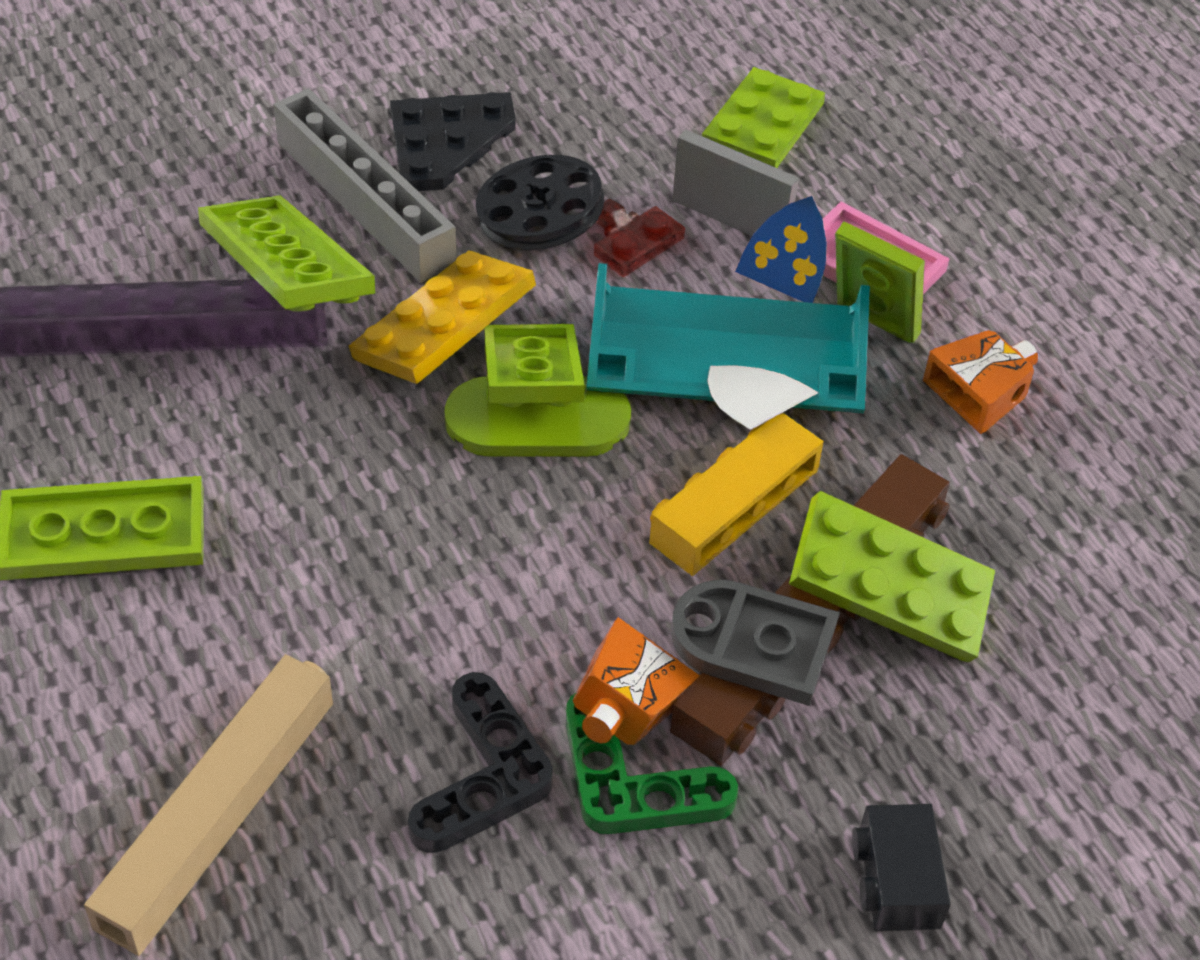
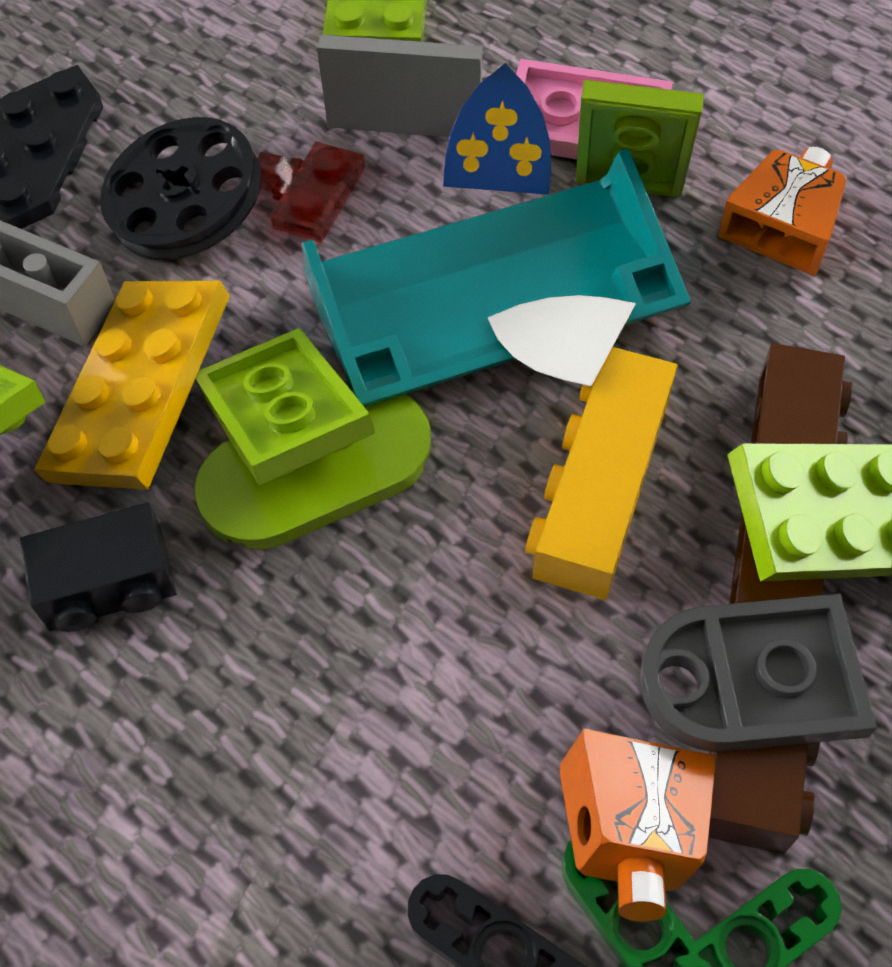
camera: 20 degrees left, 10 degrees up
(361, 418) = (97, 568): none -> black brick

